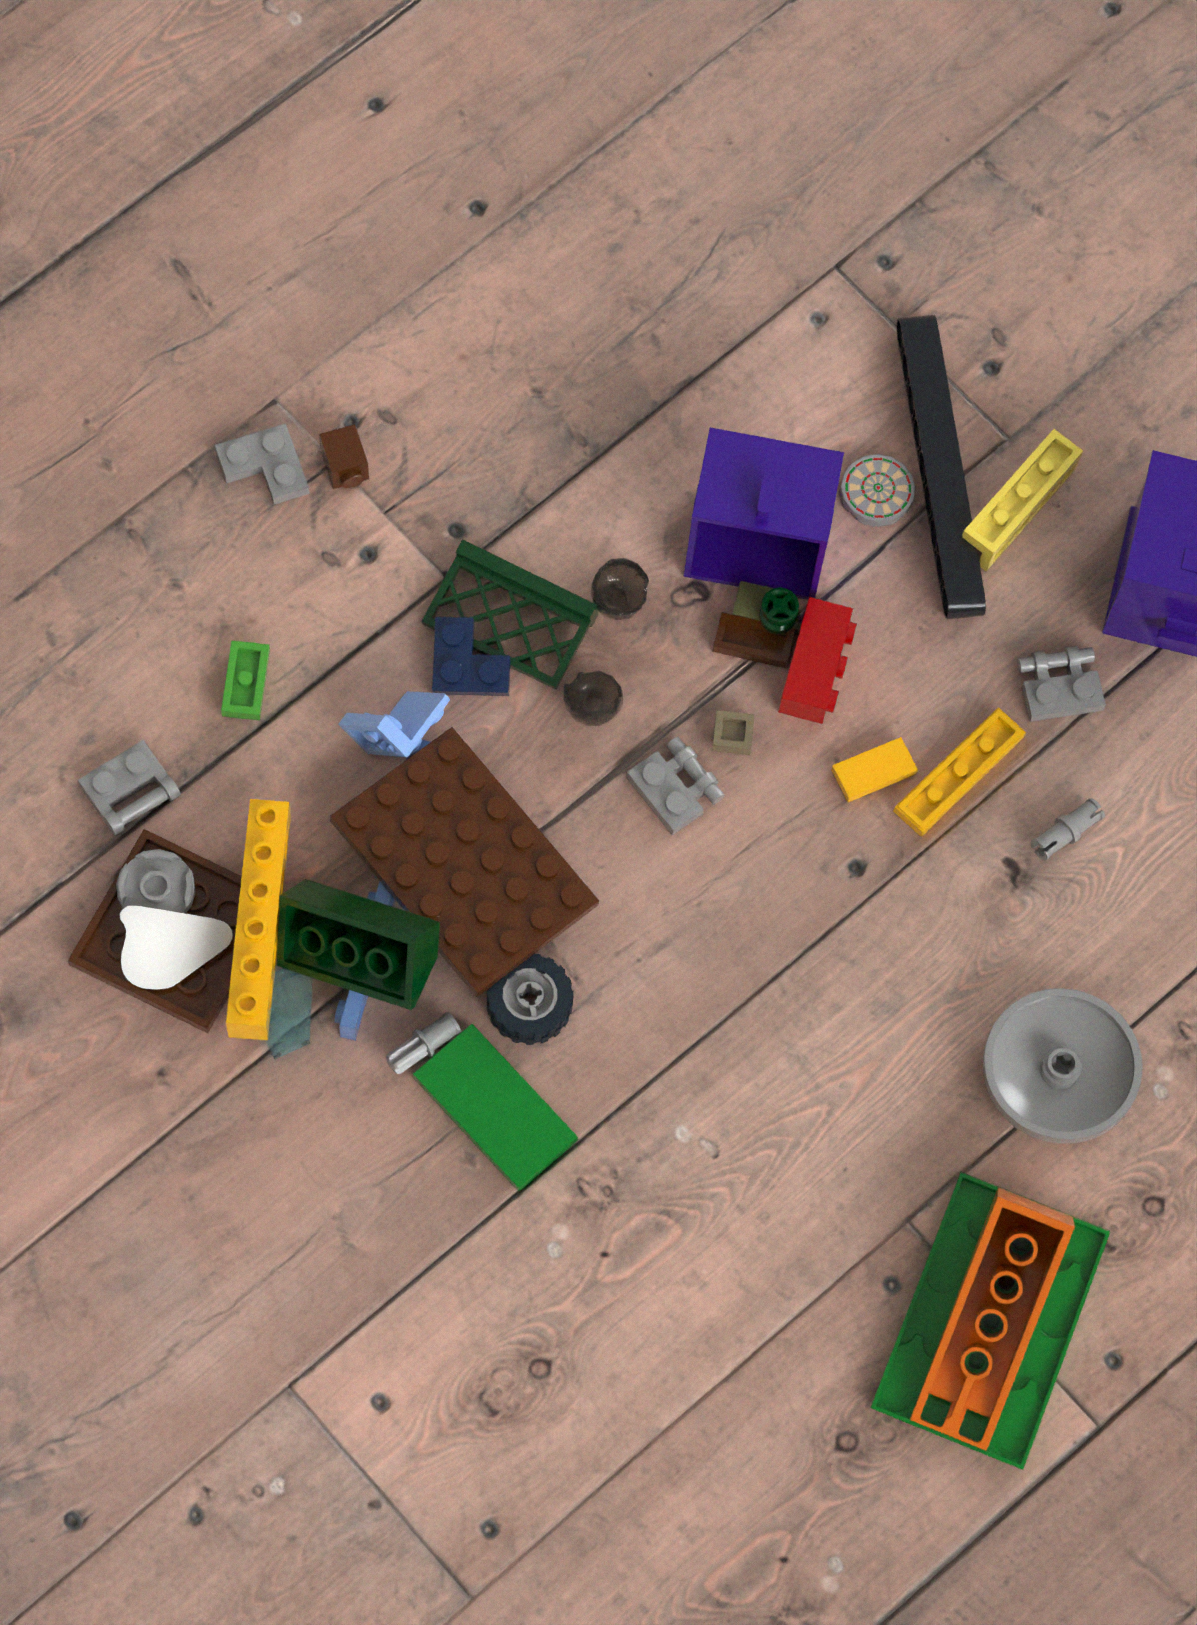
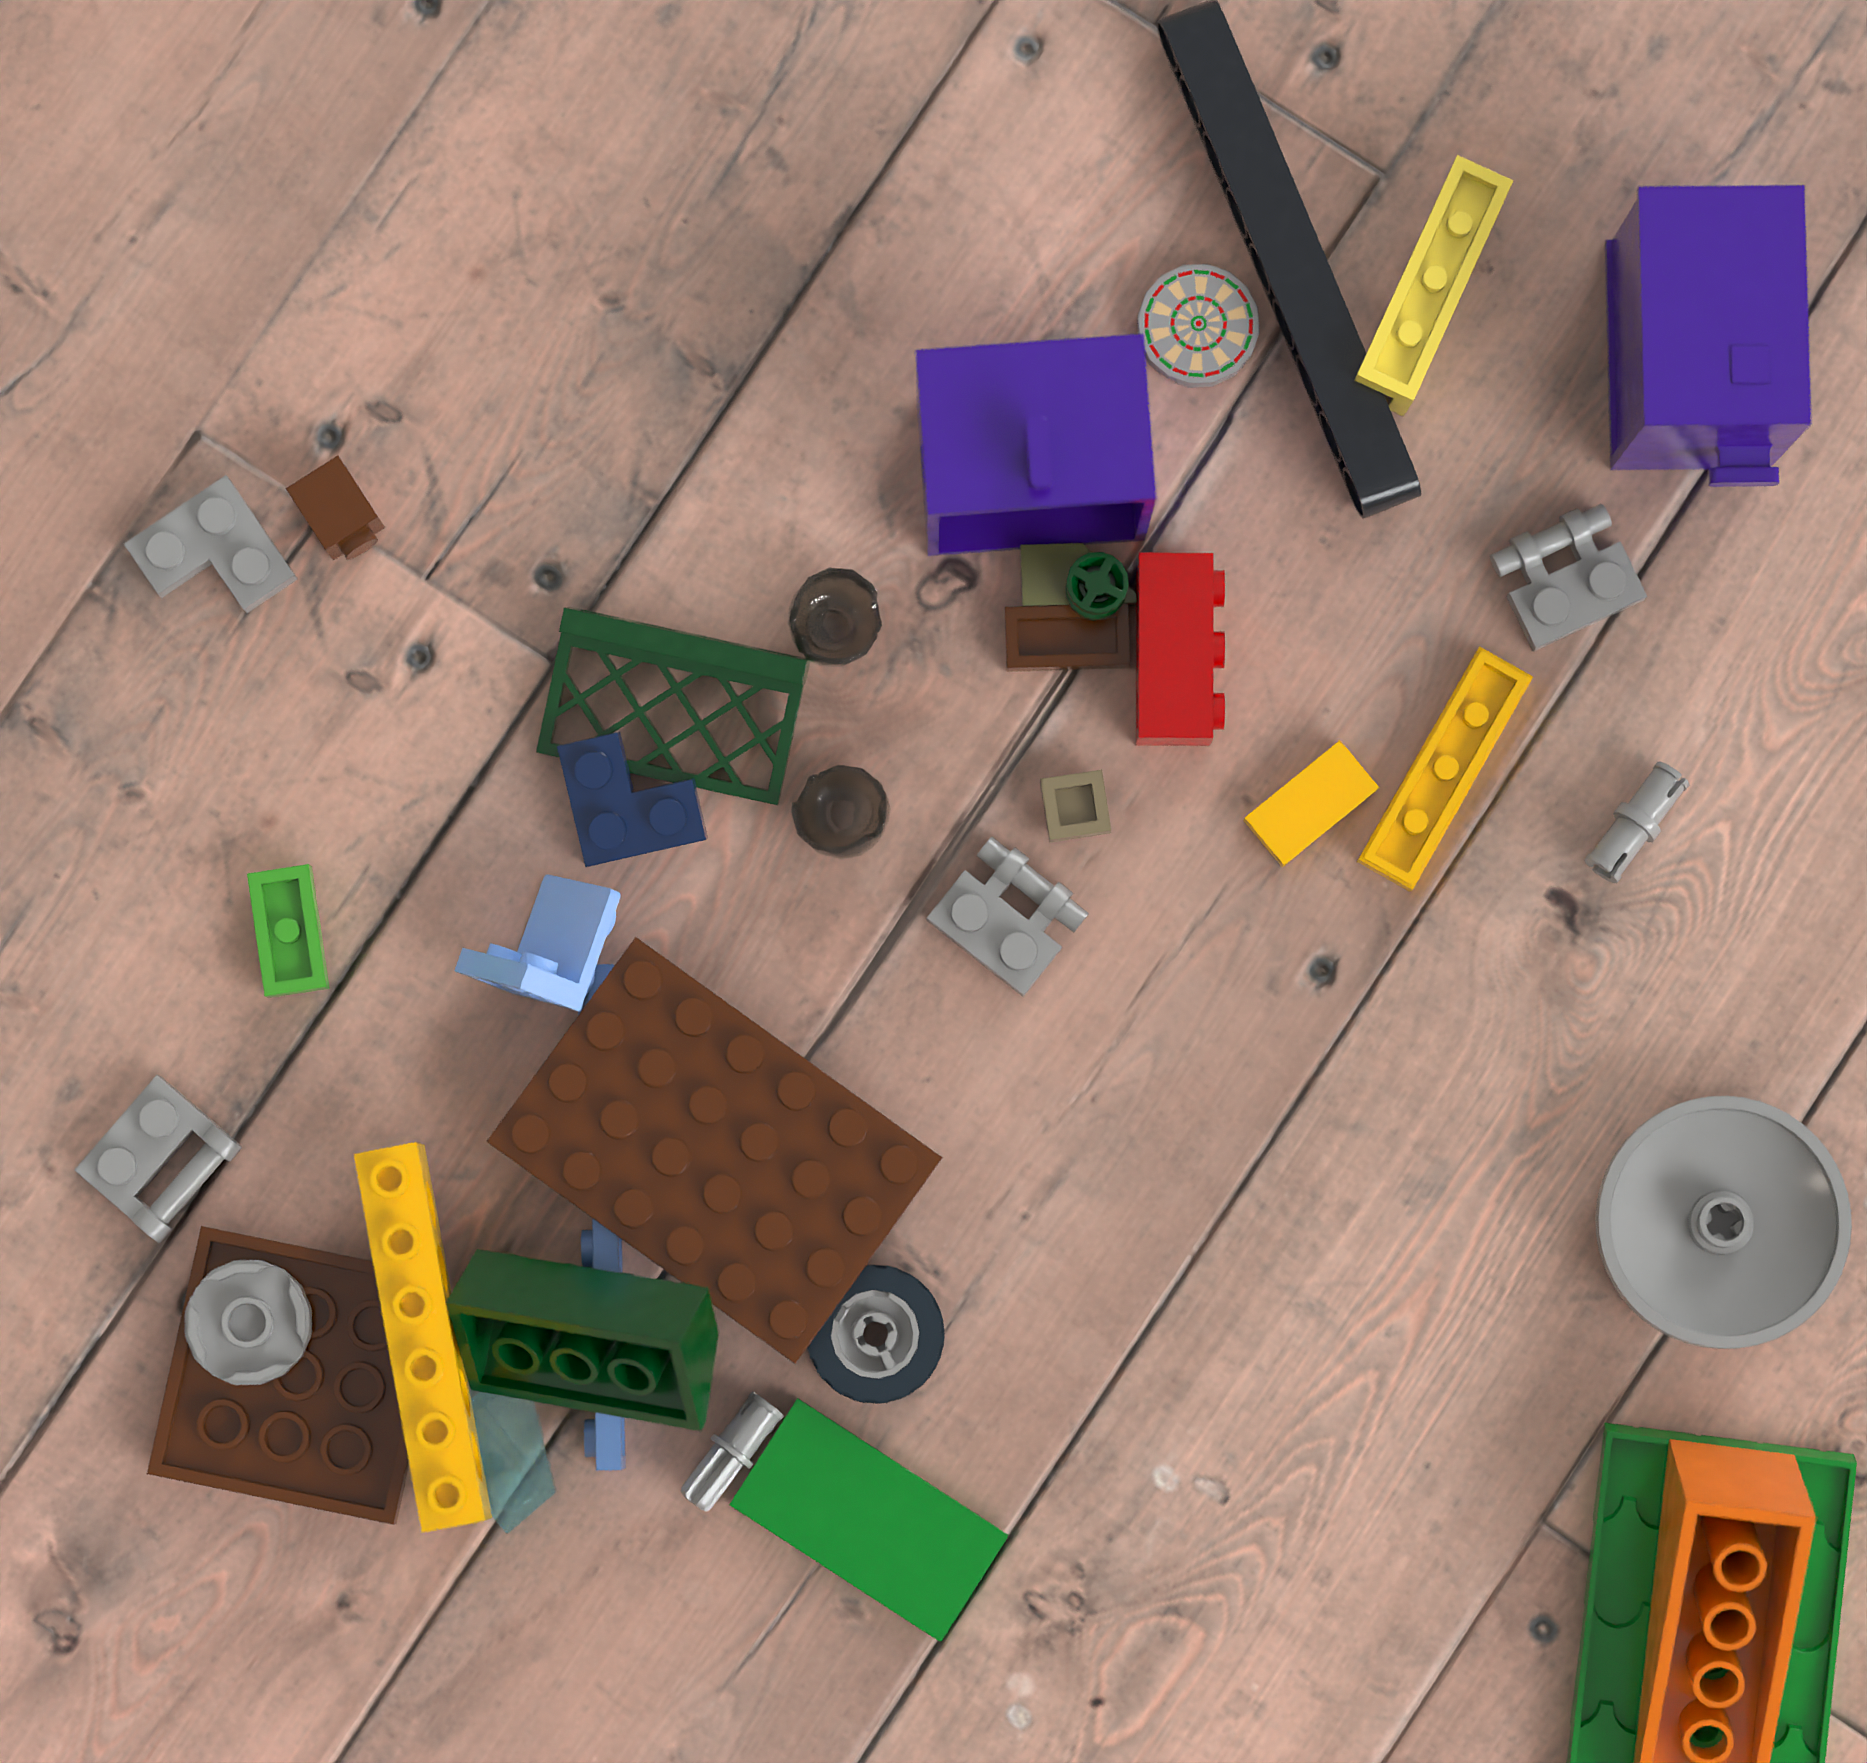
camera: 10 degrees left, 15 degrees up
(168, 945) = (295, 1412): white sticker -> none

